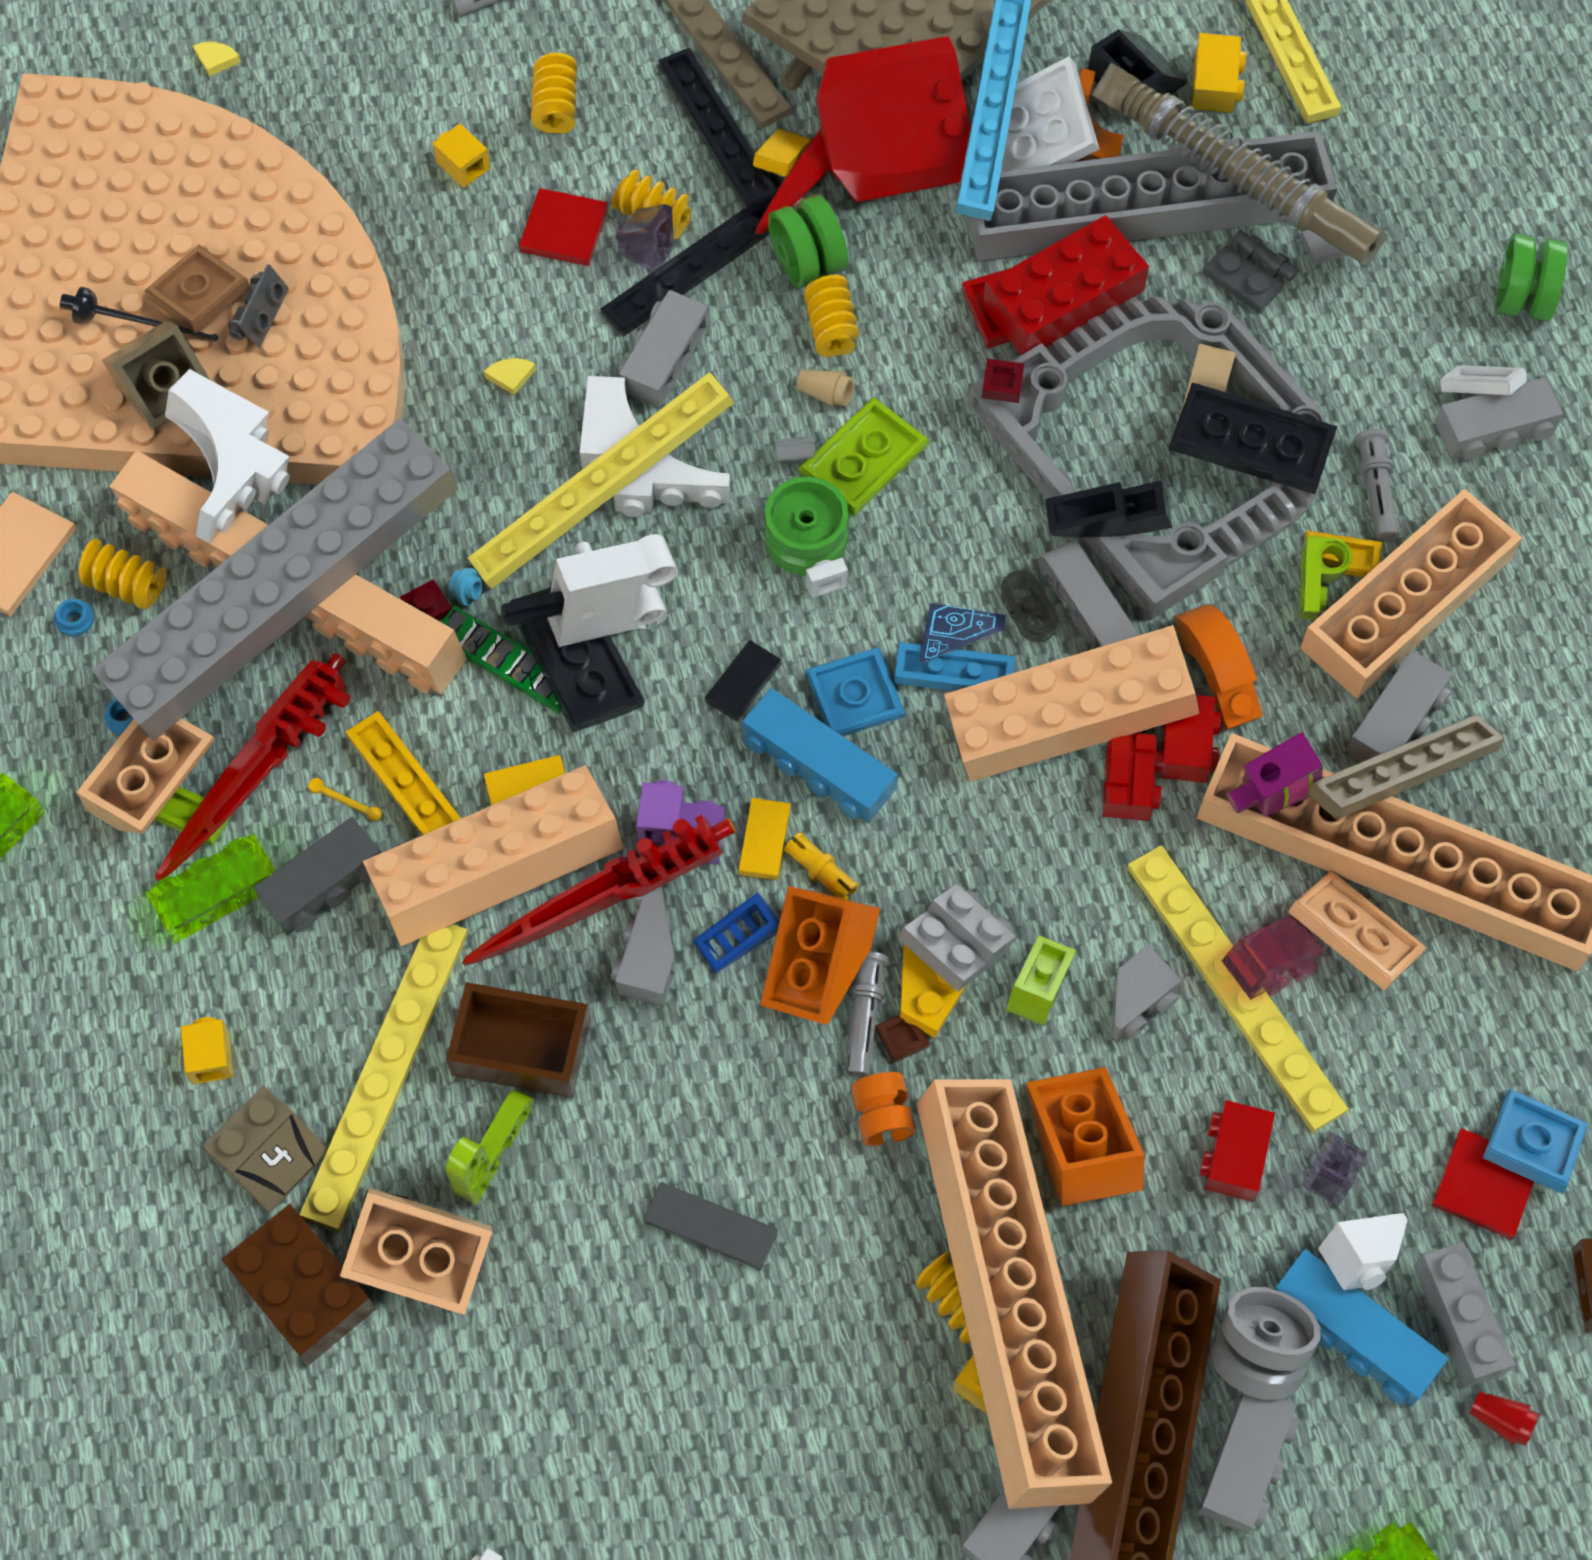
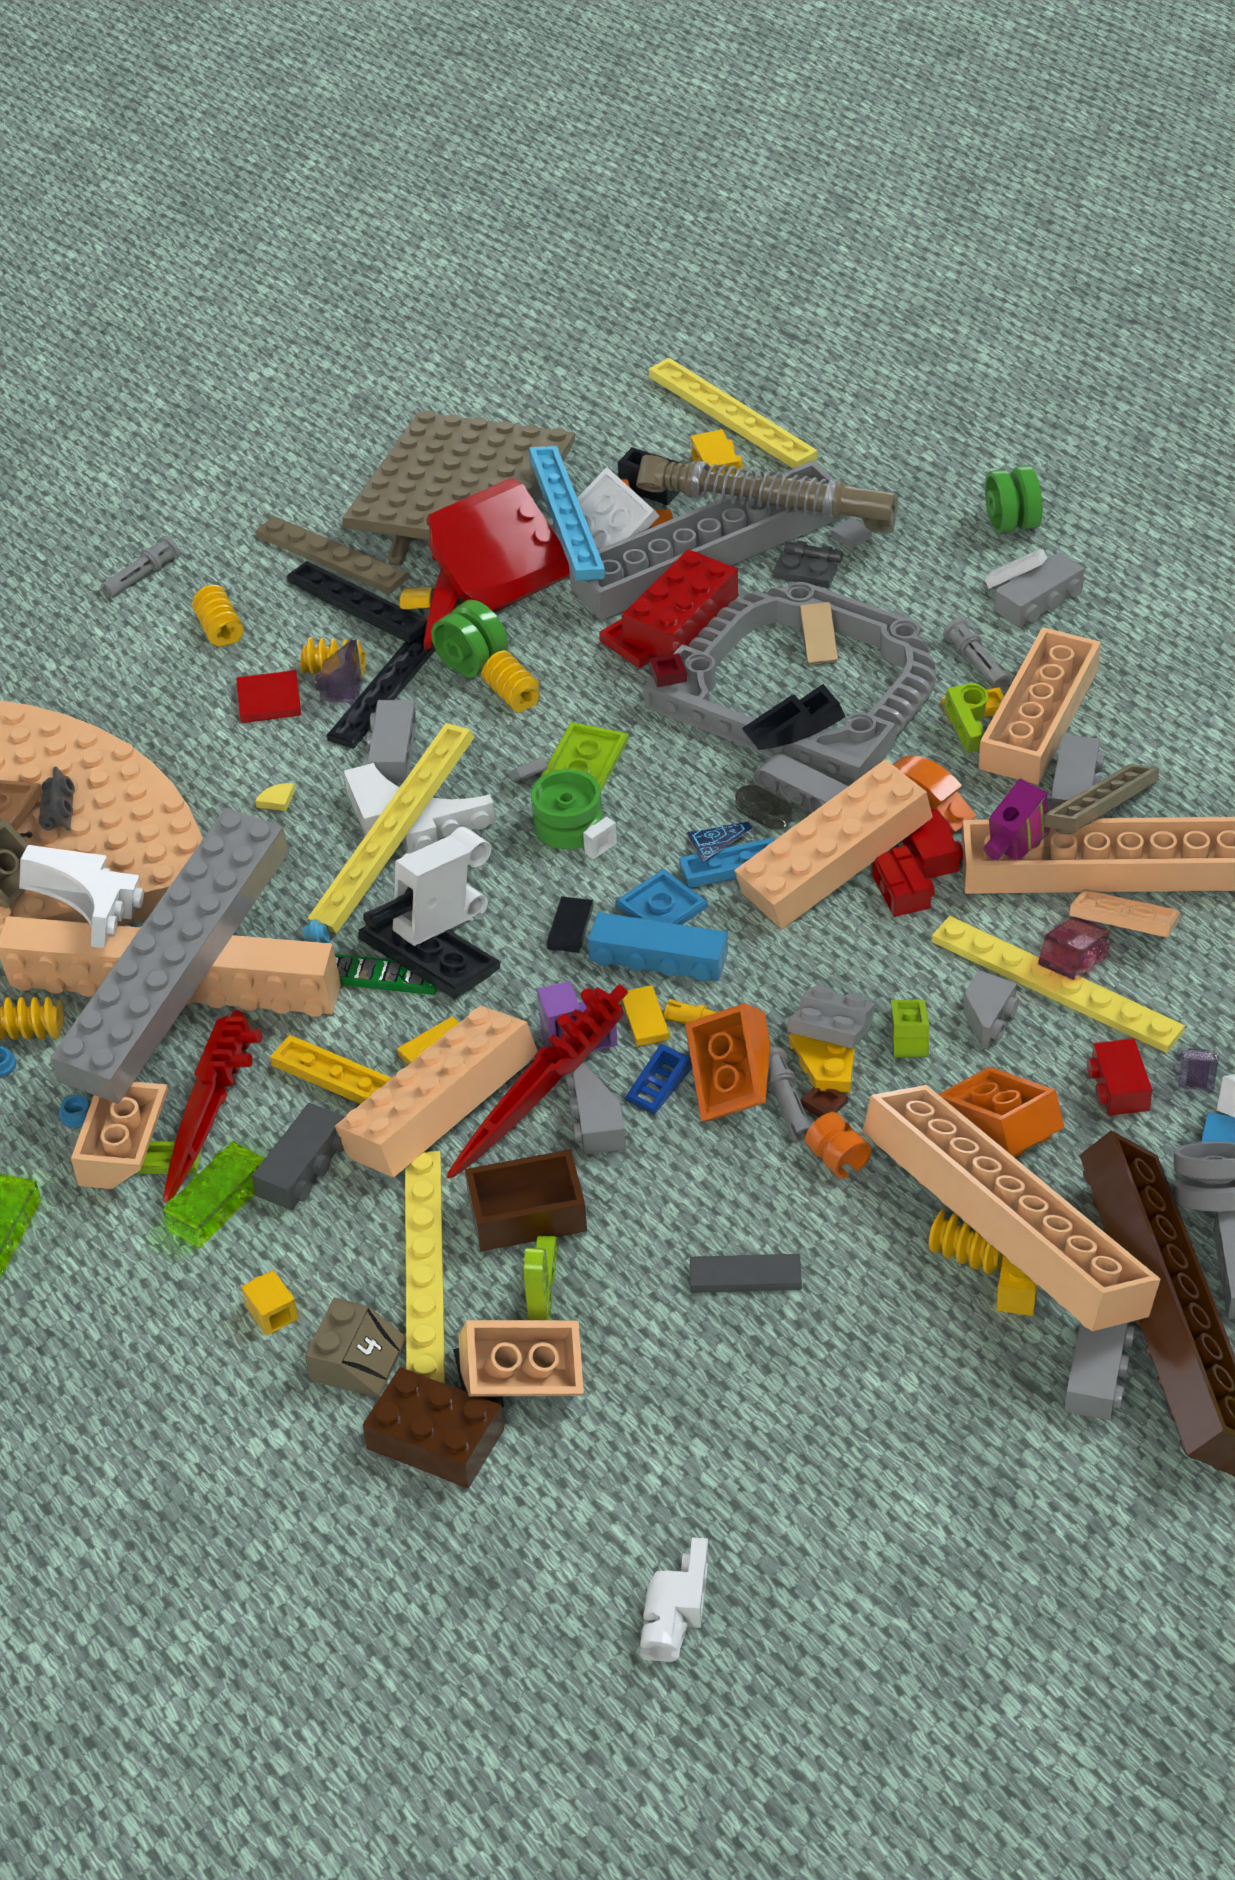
camera: 20 degrees left, 20 degrees down
(317, 786) = (263, 1105): yellow hinge -> none
(461, 155) = (163, 675): yellow brick -> none
(827, 386) = (531, 726): tan cone -> none
(1253, 438) = (872, 648): black tile -> none

